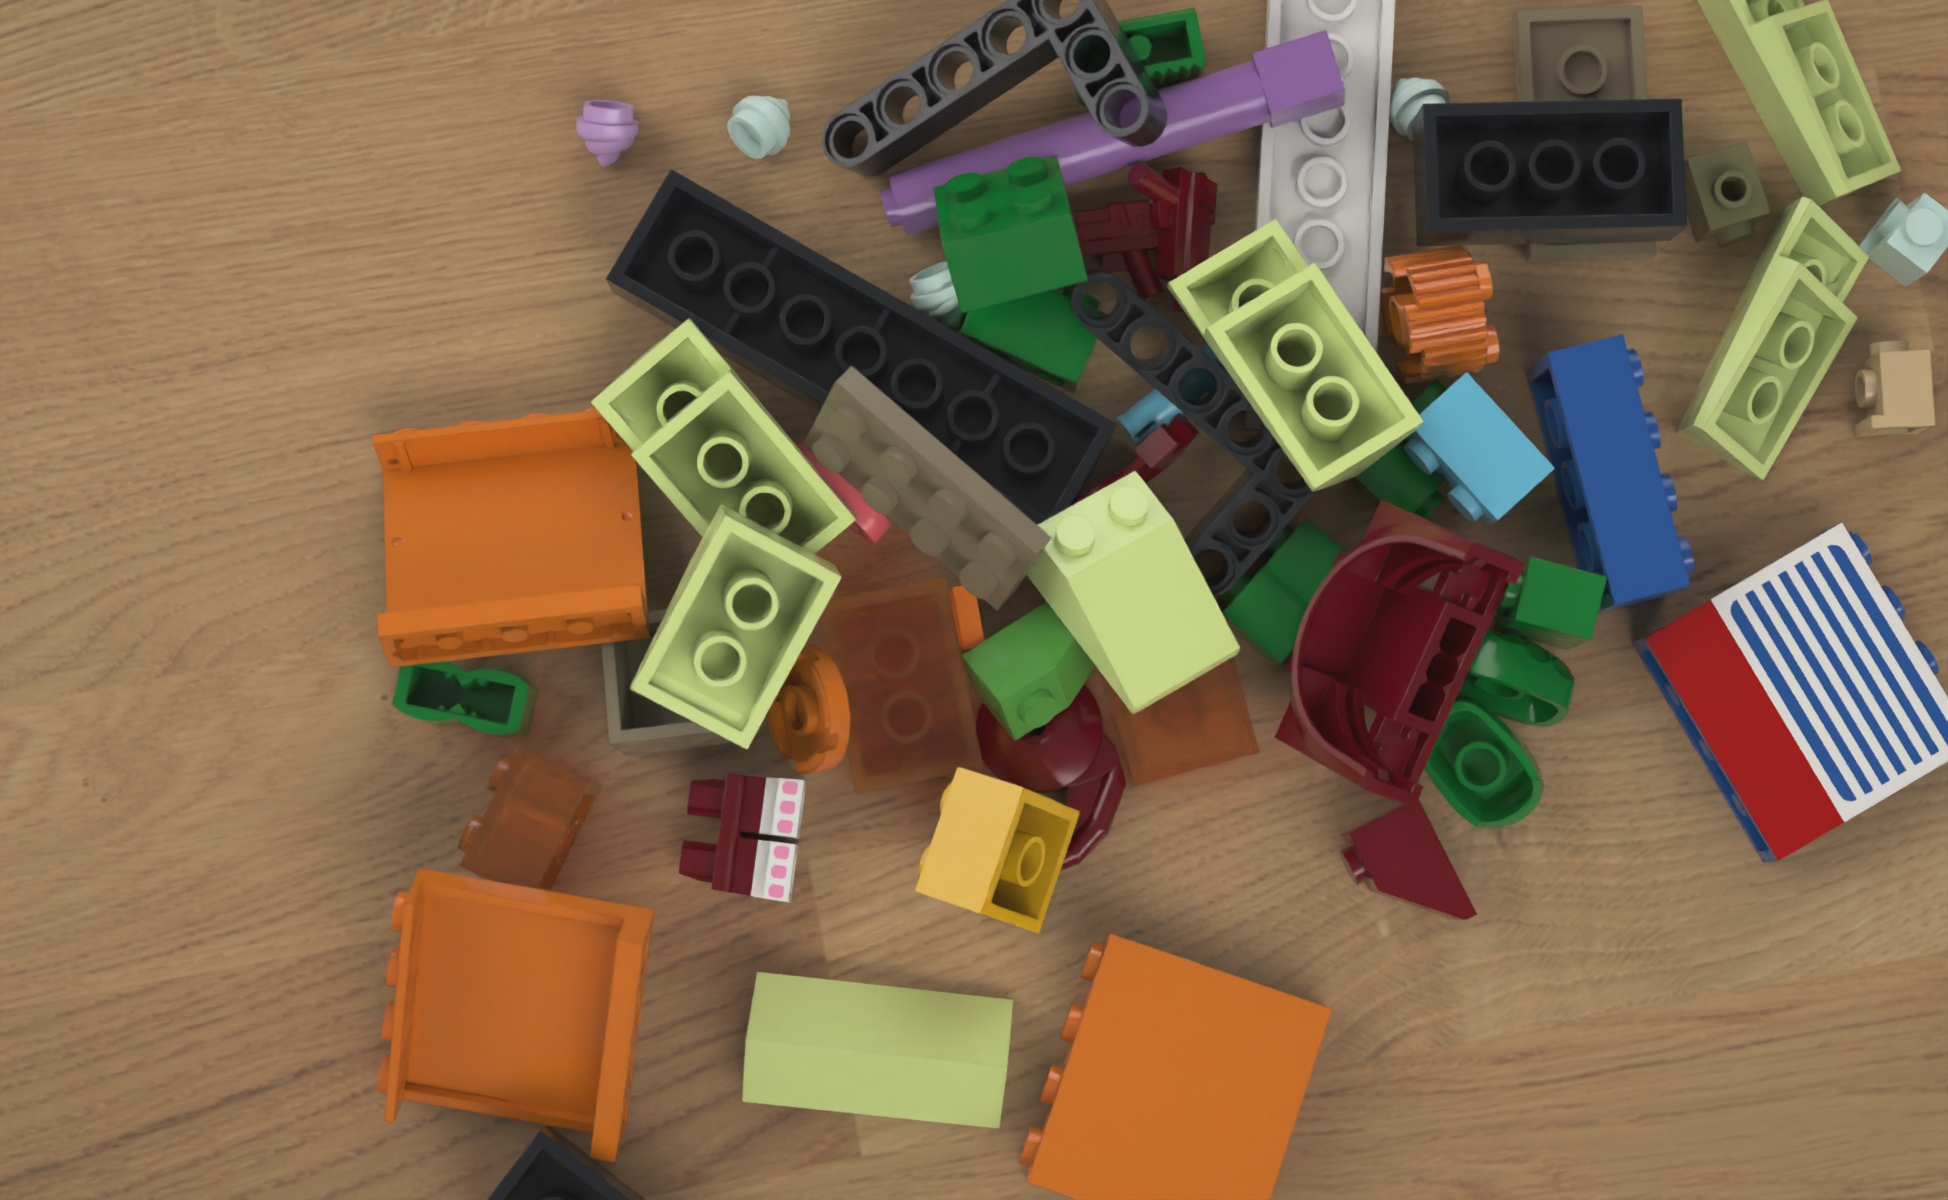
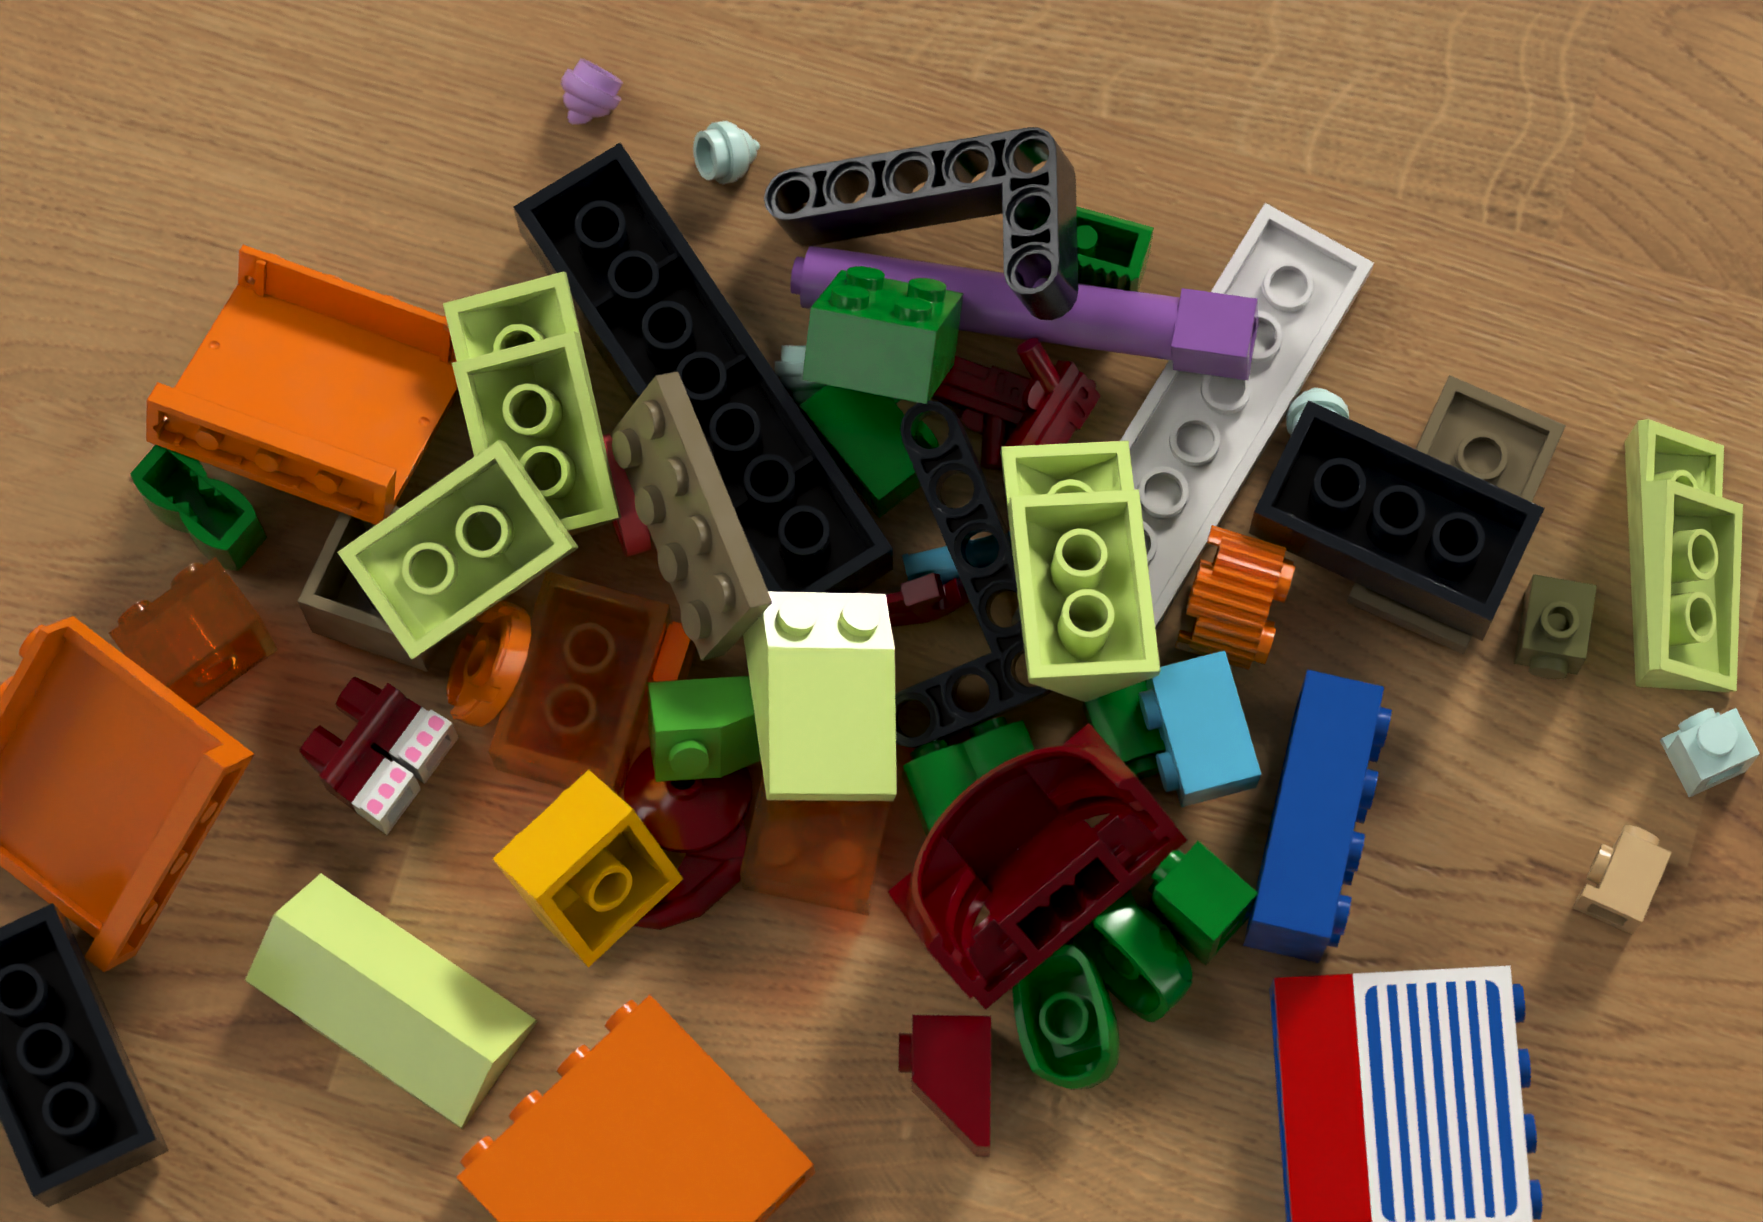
camera: 35 degrees right, 10 degrees down
(1777, 341) = (1539, 782): yellowish green slope -> none

